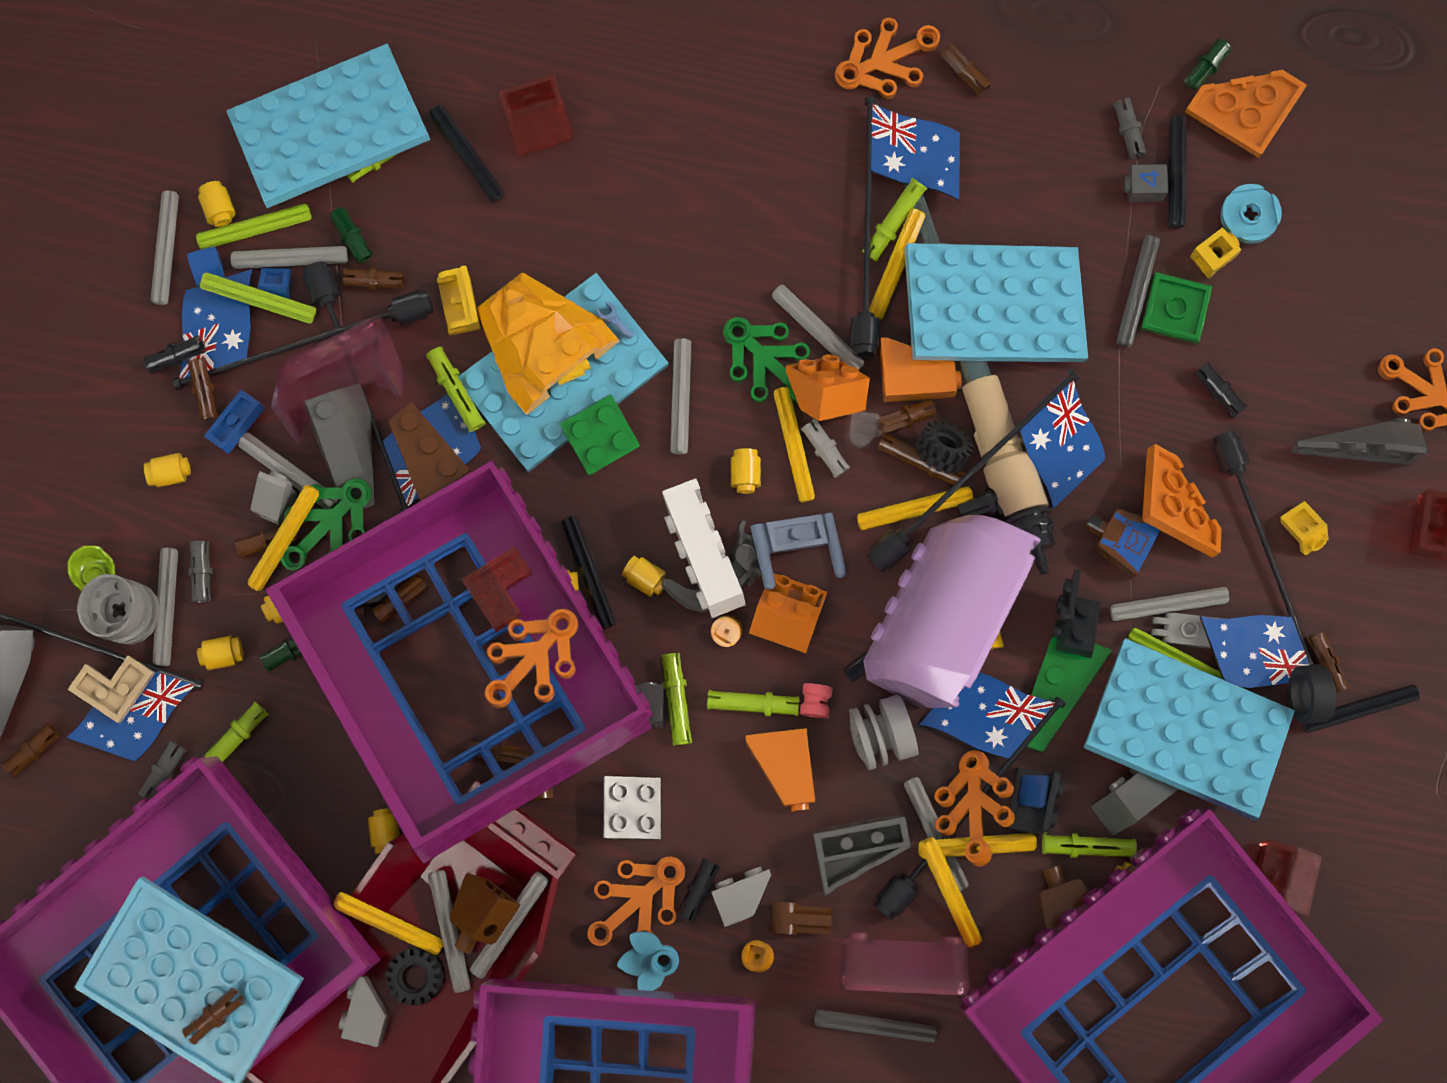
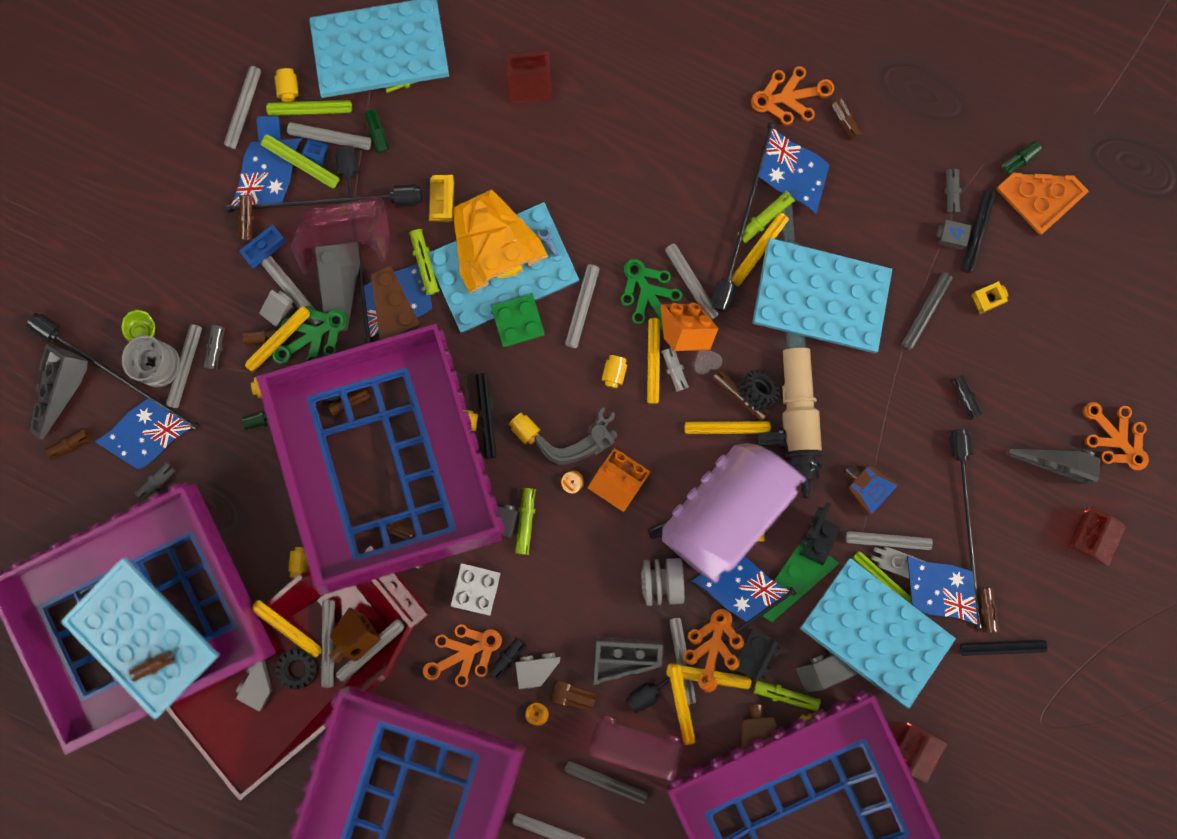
camera: 10 degrees right, 5 degrees up
(116, 695) = (134, 421): tan plate -> none
(167, 470) = (207, 269): yellow brick -> none
(174, 354) = (231, 187): black pin -> none
(220, 652) = (215, 408): yellow brick -> none
(238, 732) = (212, 469): lime pin -> none
(373, 278) = (385, 167): reddish brown pin -> none
(467, 153) = (473, 91): black axle -> none
(490, 586) = (413, 413): clear red plate -> none
(535, 654) = (431, 471): orange plant -> none
(644, 963) = (458, 696): medium azure plate -> none
(702, 548) = (570, 421): white wedge -> none
(753, 702) = (578, 537): lime pin -> none
(786, 765) = (590, 587): orange slope -> none
(796, 535) = (637, 426): sand blue plate -> none
(816, 700) = (622, 547): coral wheel -> none
(906, 416) = (737, 361): reddish brown axle -> none
(915, 379) = (749, 336): orange slope -> none
(1033, 791) = (757, 649): blue slope -> none
(1056, 440) = (839, 407): flag -> none
(1176, 308) = (951, 330): green tile -> none
(1176, 505) = (912, 472): orange plate -> none
(1260, 201) = (1032, 268): medium azure plate -> none
(1306, 527) = (999, 511): yellow bracket -> none
(1312, 693) = (970, 630): black tyre -> none

